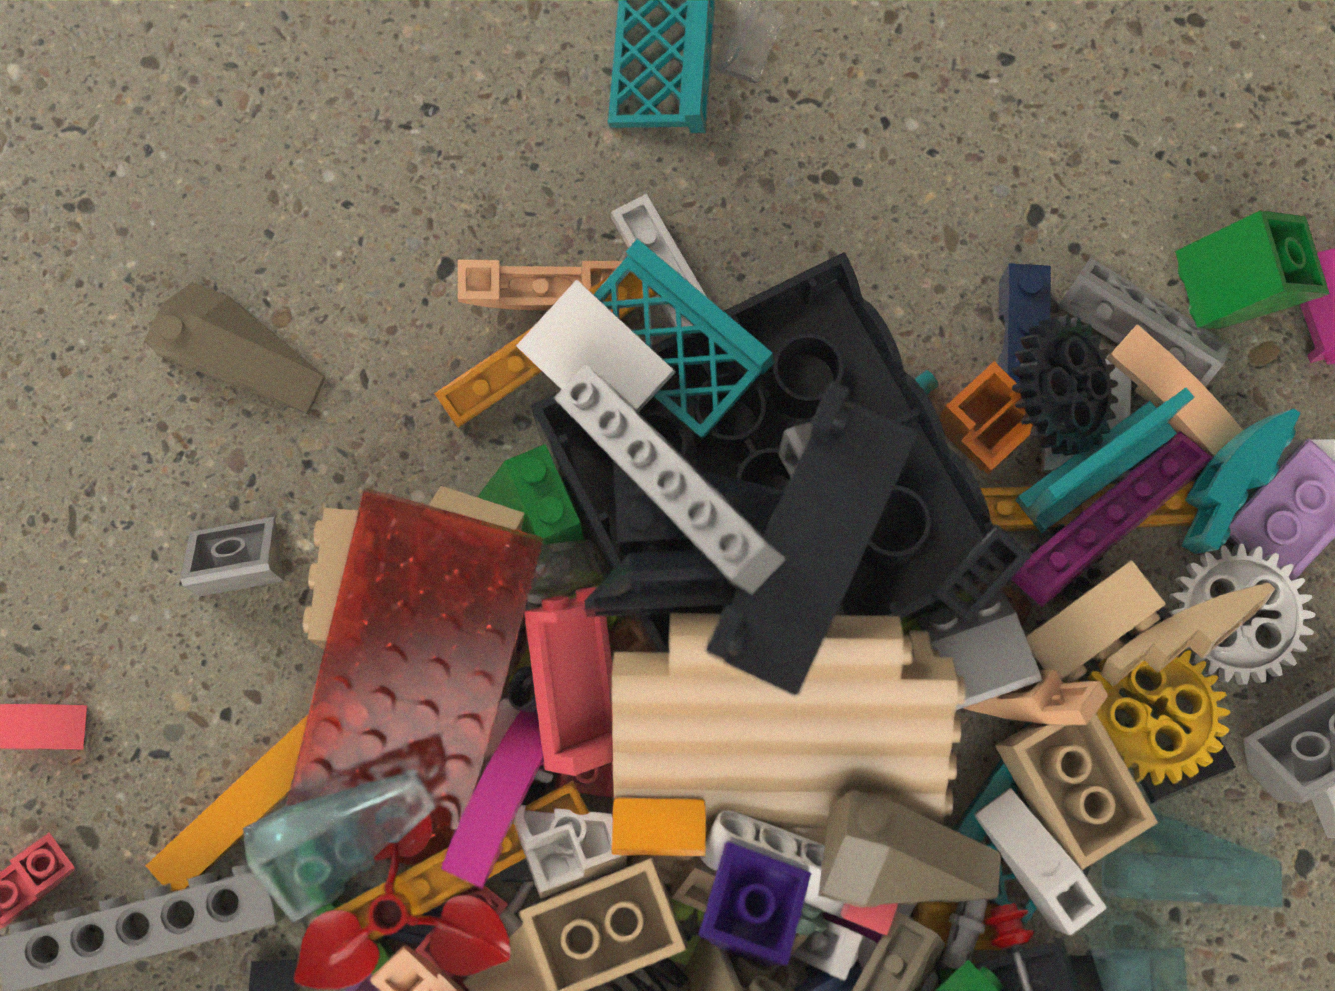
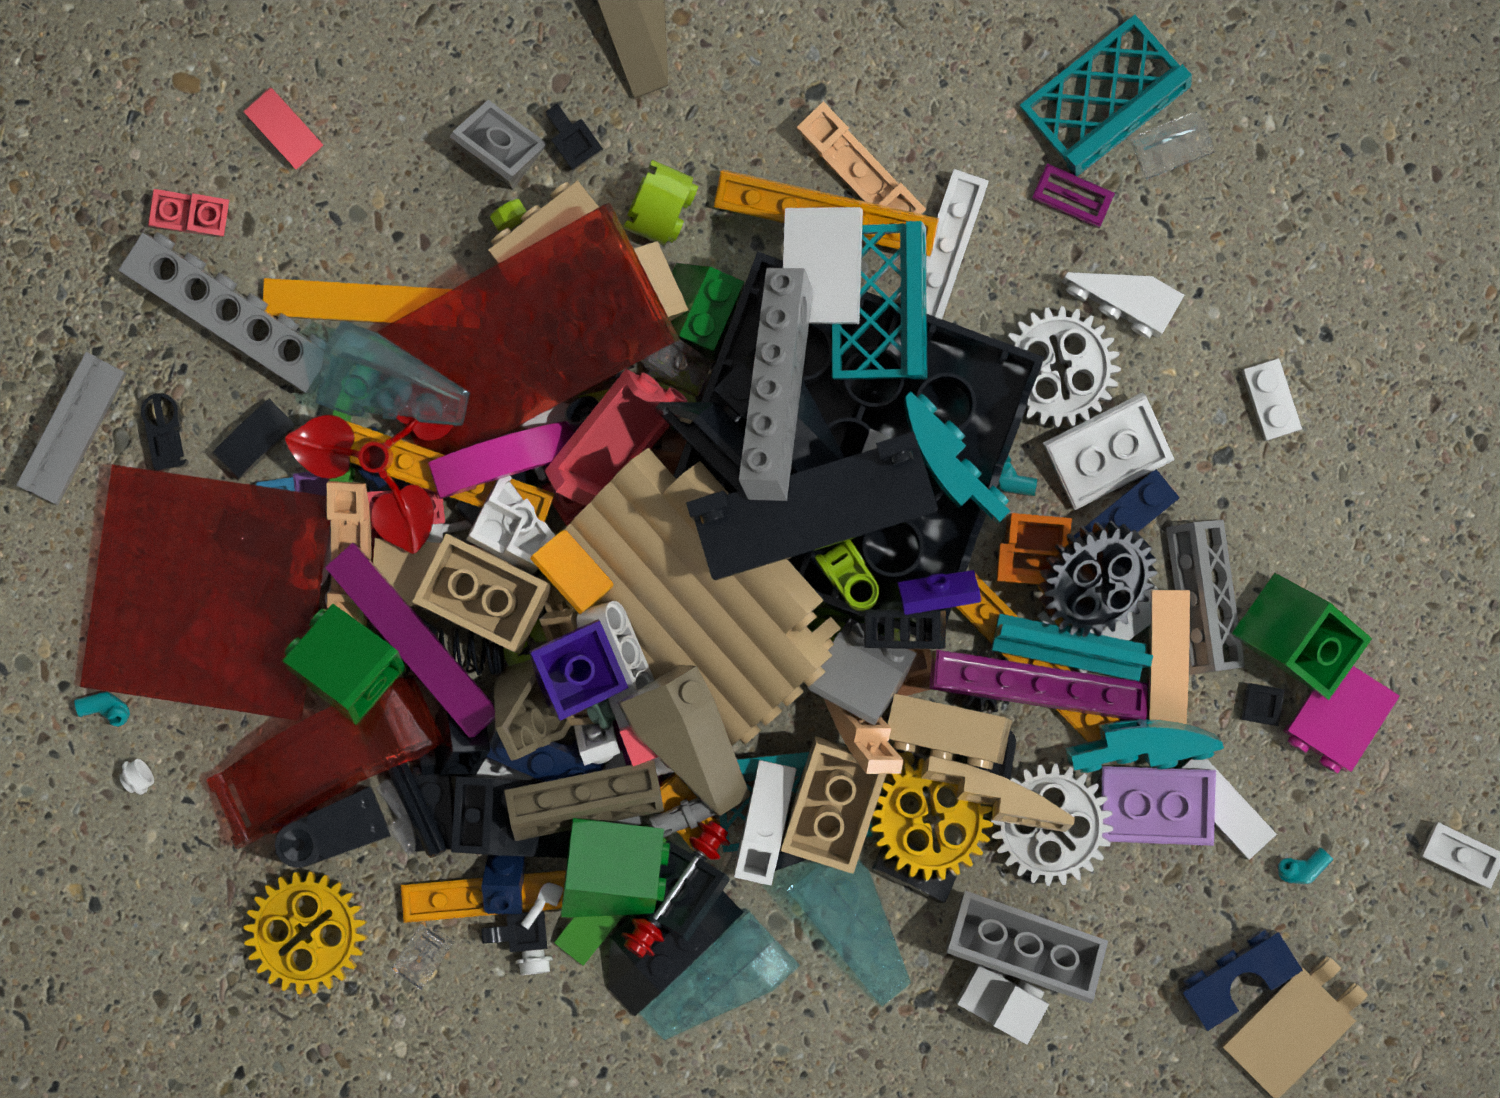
camera: 45 degrees right, 10 degrees up
(293, 492) = (574, 141): none -> black plate
(296, 600) = (508, 215): none -> lime tile
(412, 460) = (660, 203): none -> lime brick
(725, 159) = (1066, 208): none -> magenta tile
(850, 166) = (1135, 298): none -> white slope
(867, 243) = (1092, 361): none -> white gear
(889, 577) = (847, 573): none -> lime piece
(904, 405) = (939, 447): none -> teal slope
(955, 294) = (1108, 451): none -> white tile
(977, 512) = (939, 592): none -> dark purple plate
(1024, 139) = (1271, 399): none -> white plate
(1274, 358) = (1262, 704): none -> black tile

